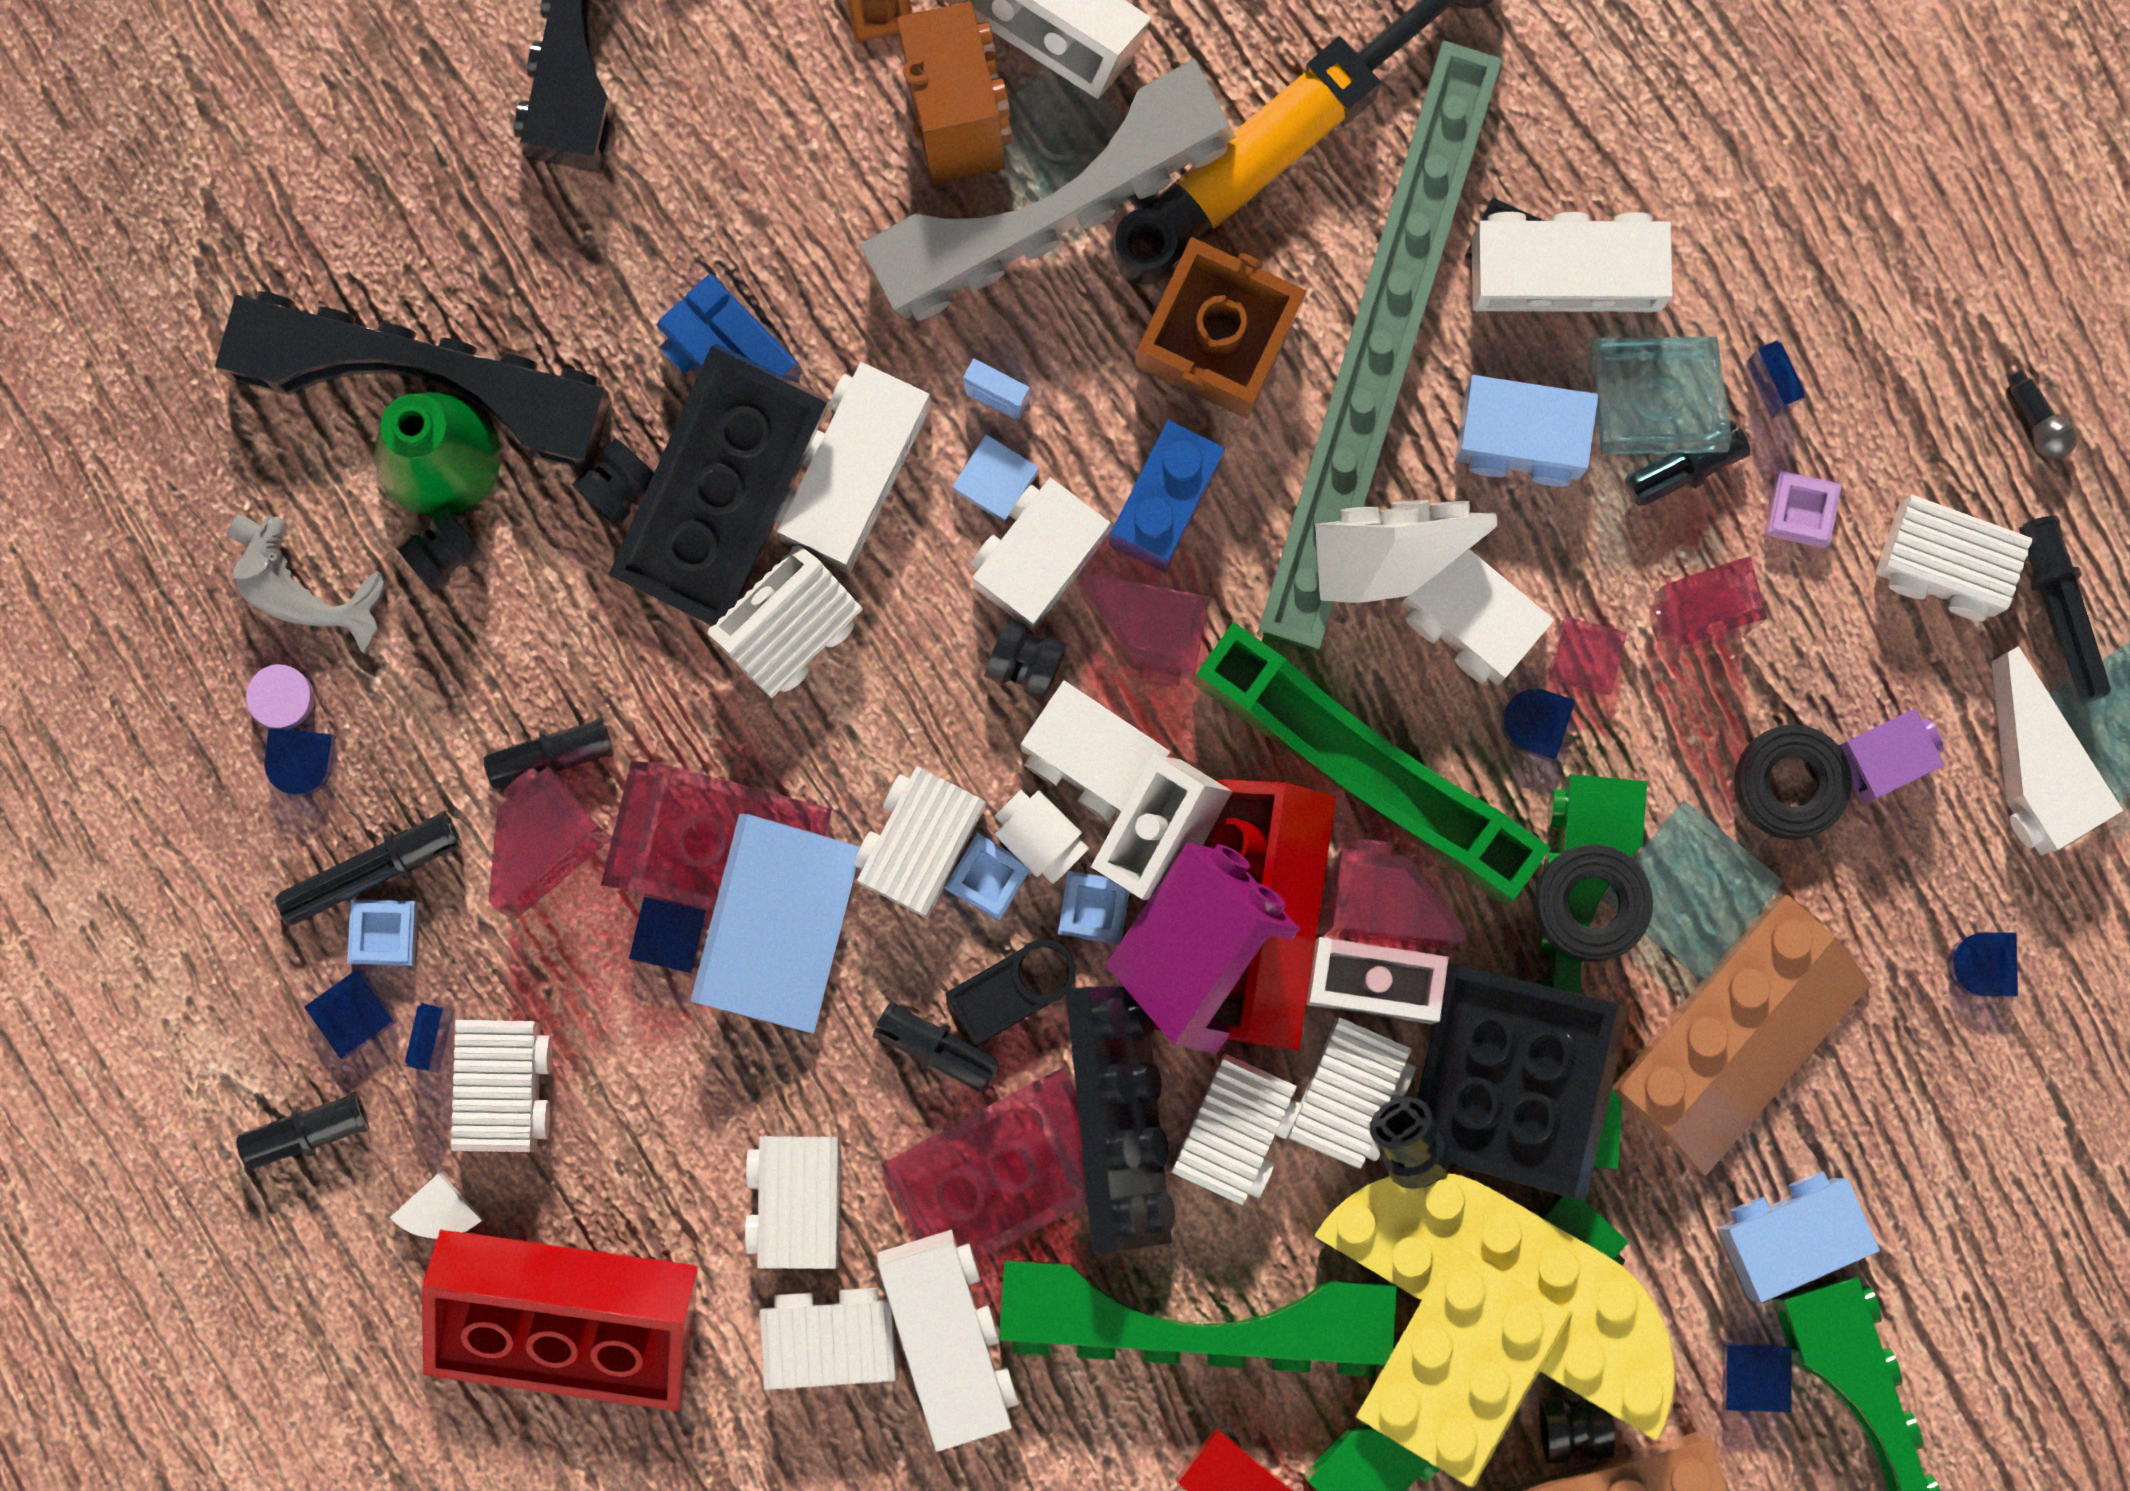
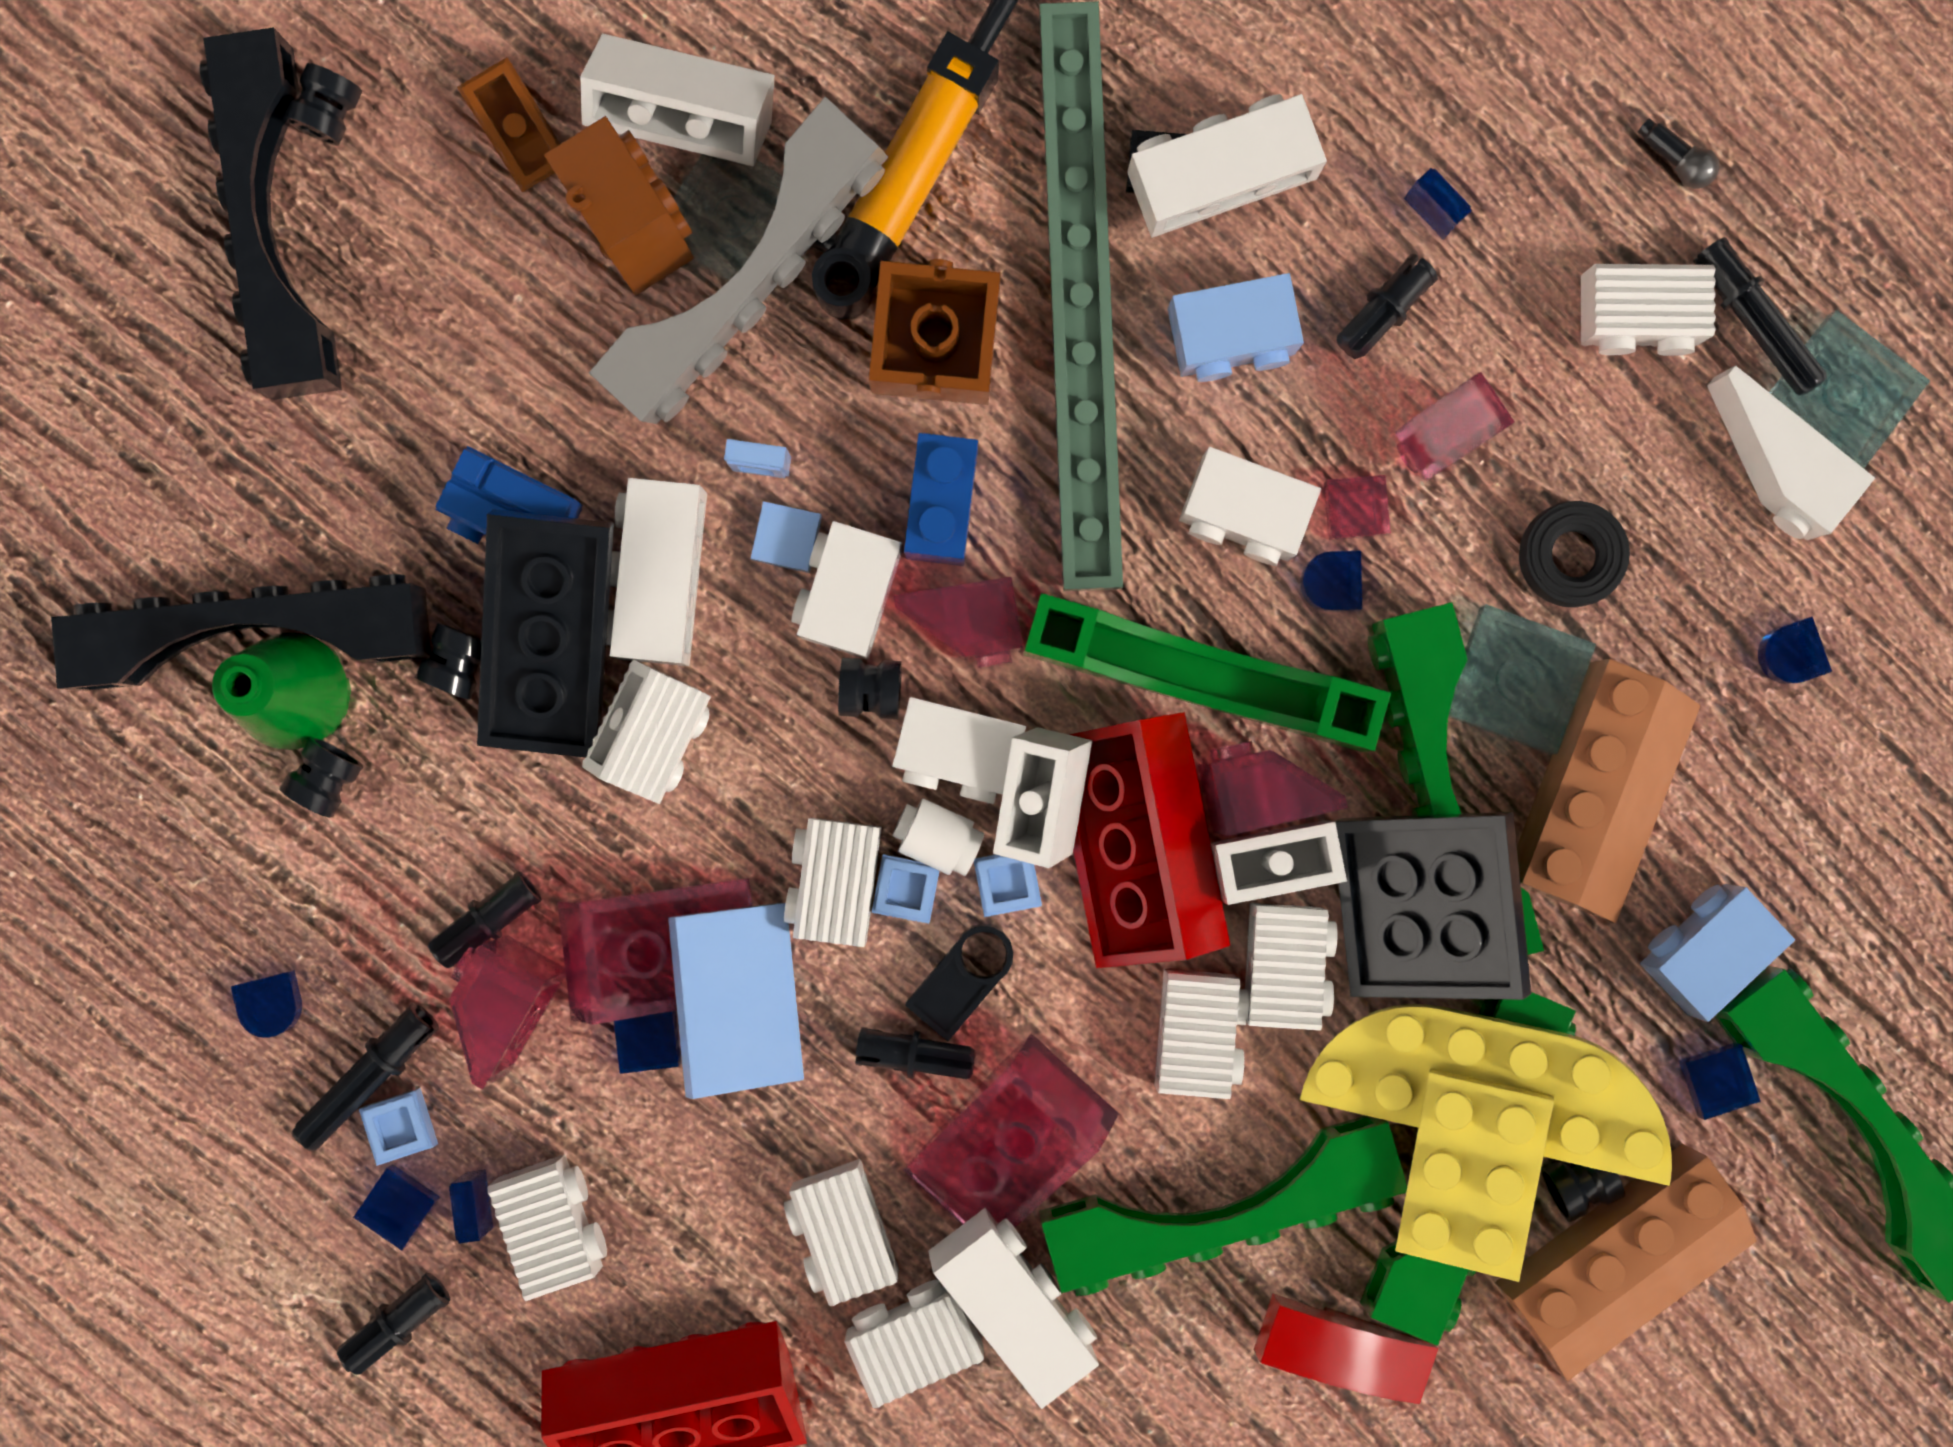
camera: 20 degrees left, 5 degrees up
(269, 586) = (183, 862): light grey animal -> none
(280, 697) = (231, 954): lavender tile -> none
(436, 1208) = (534, 1349): white tile -> none
(1119, 1120) = (1096, 1064): black plate -> none
(1197, 943) = (1112, 889): magenta panel -> none
(1395, 552) = (1161, 478): white slope -> none
(1409, 1142) = (1357, 995): black wheel -> none
(1633, 895) = (1481, 719): black tyre -> none
(1660, 395) = (1342, 254): clear light blue tile -> none
(1802, 509) = (1499, 310): lavender tile -> none
(1893, 755) = (1655, 500): medium lavender brick -> none

